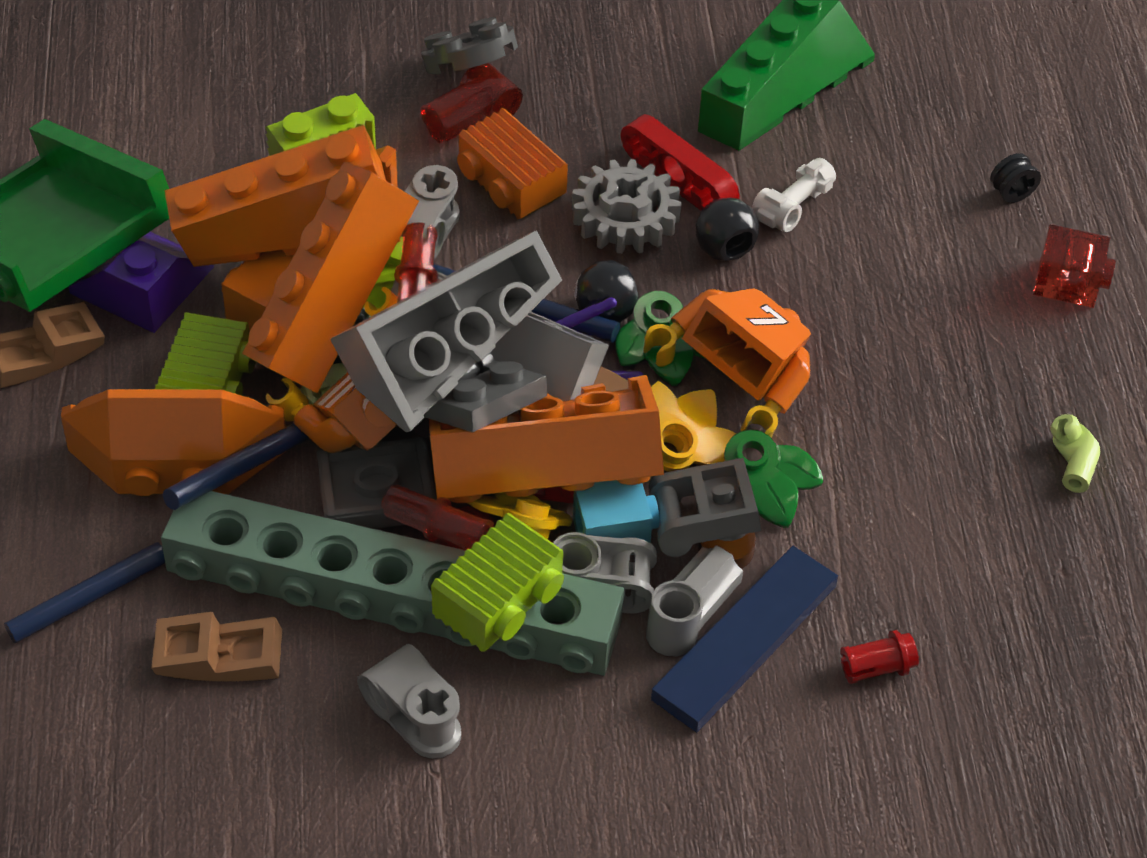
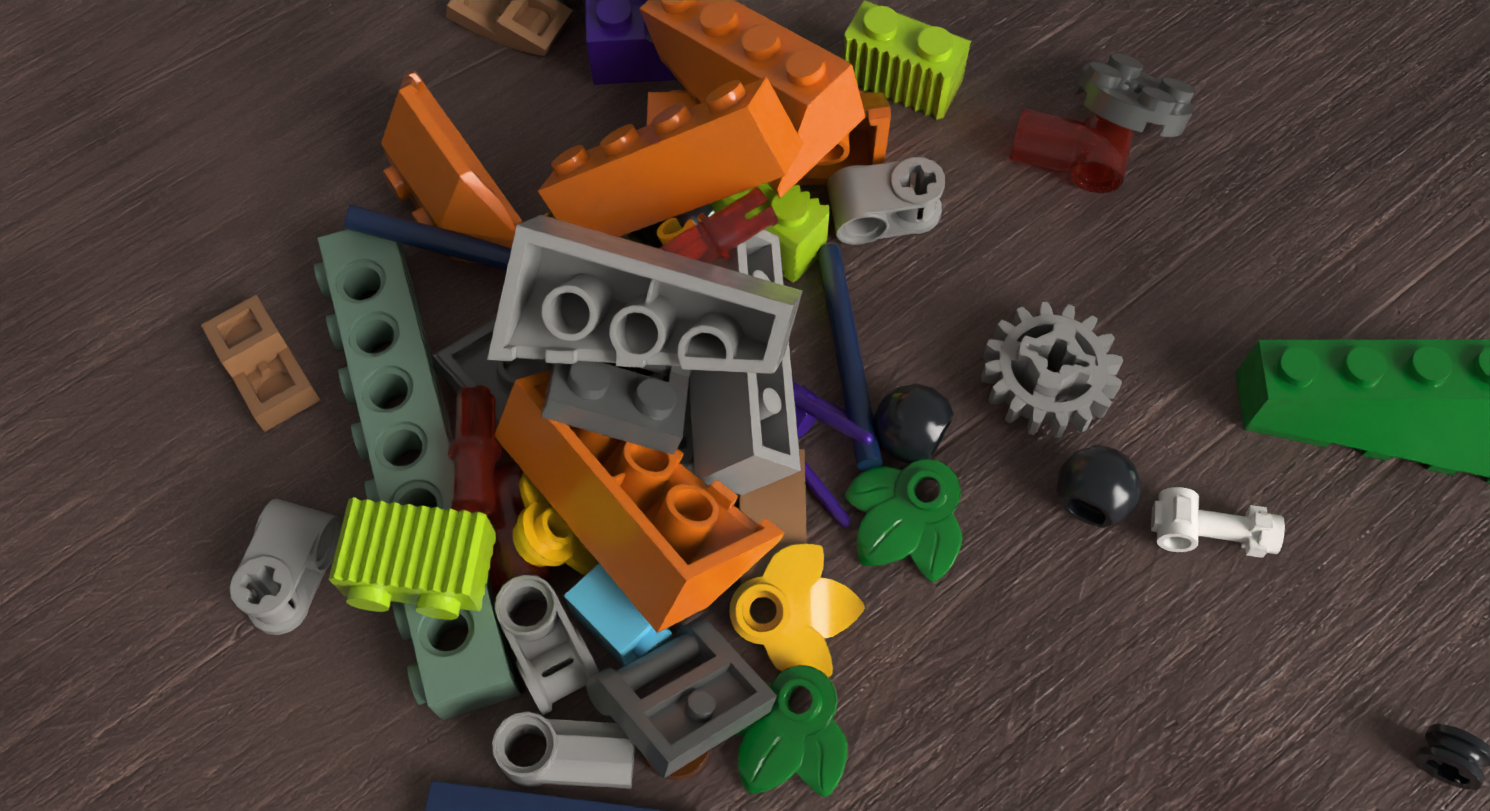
camera: 60 degrees right, 15 degrees up
(85, 592) = (251, 219): dark blue bar -> none
(207, 355) = (535, 137): lime brick -> none
(511, 164) = (1019, 230): orange brick -> none
(697, 176) = (1154, 385): red beam -> none
(746, 340) = (940, 607): orange torso -> none

